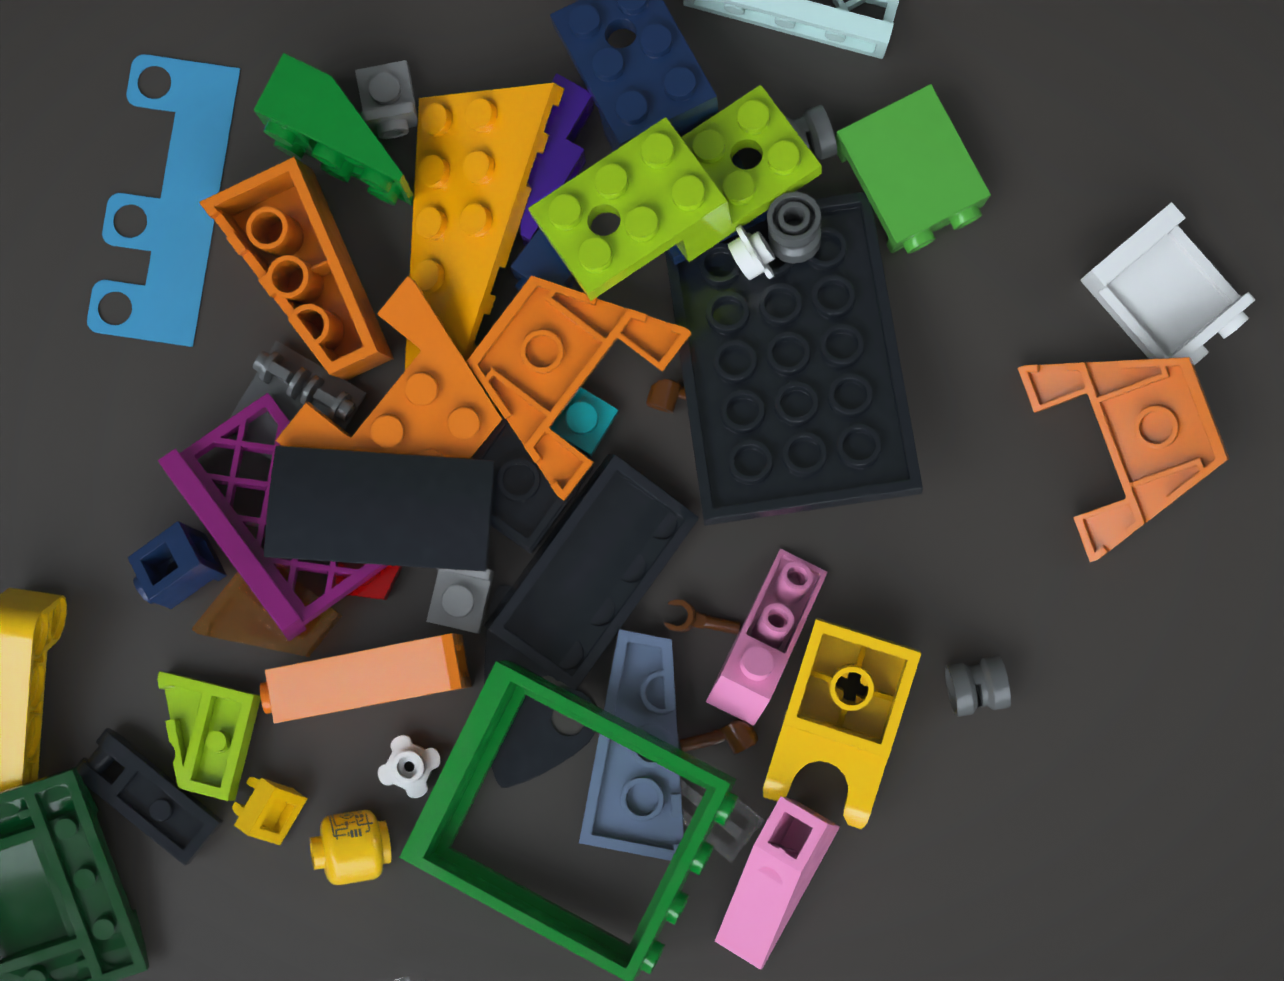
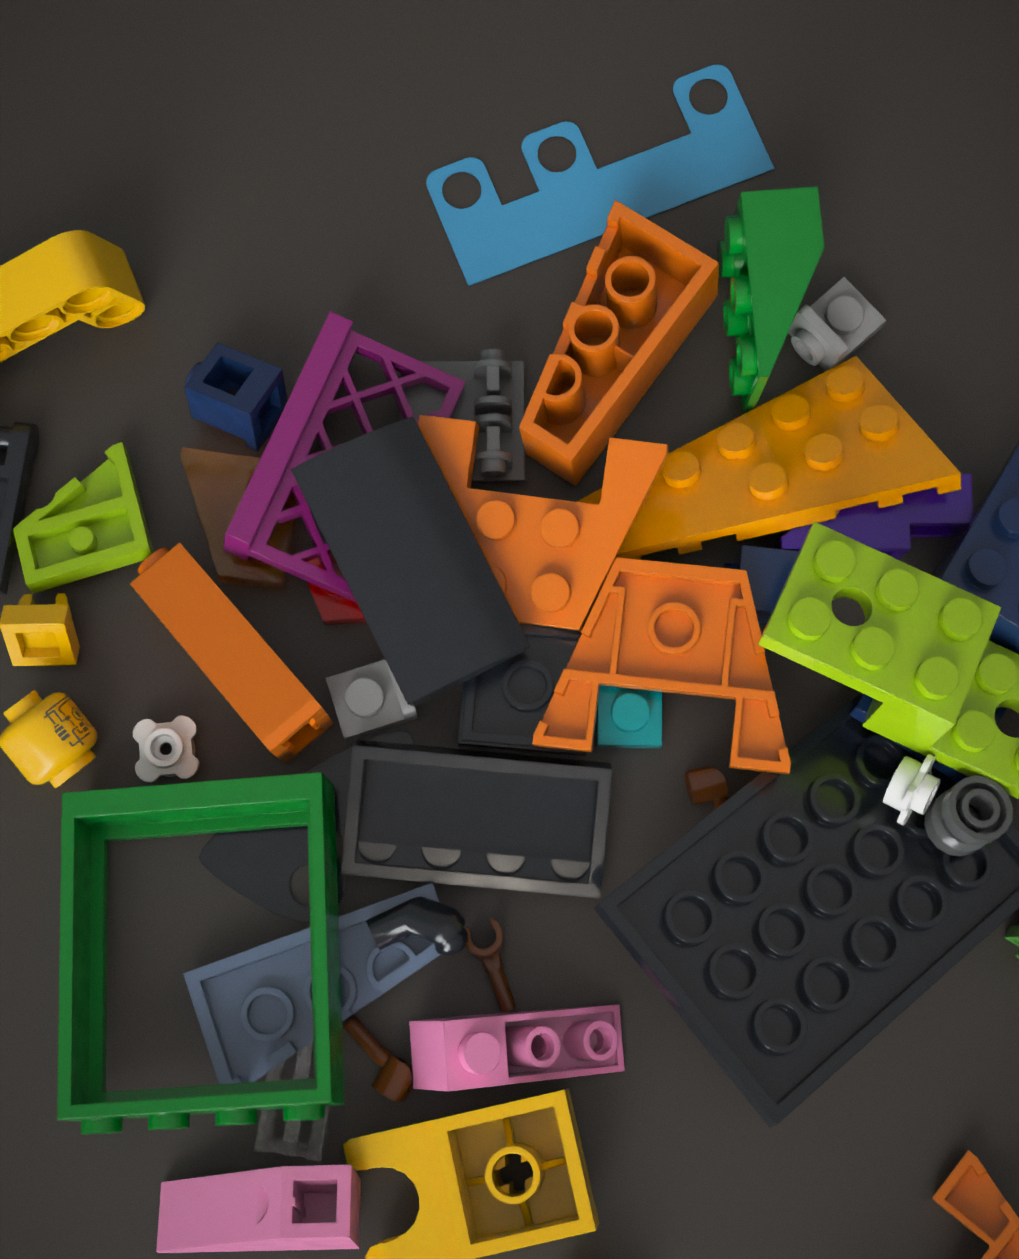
camera: 55 degrees right, 5 degrees down
(642, 649) = (423, 919): none -> black arm

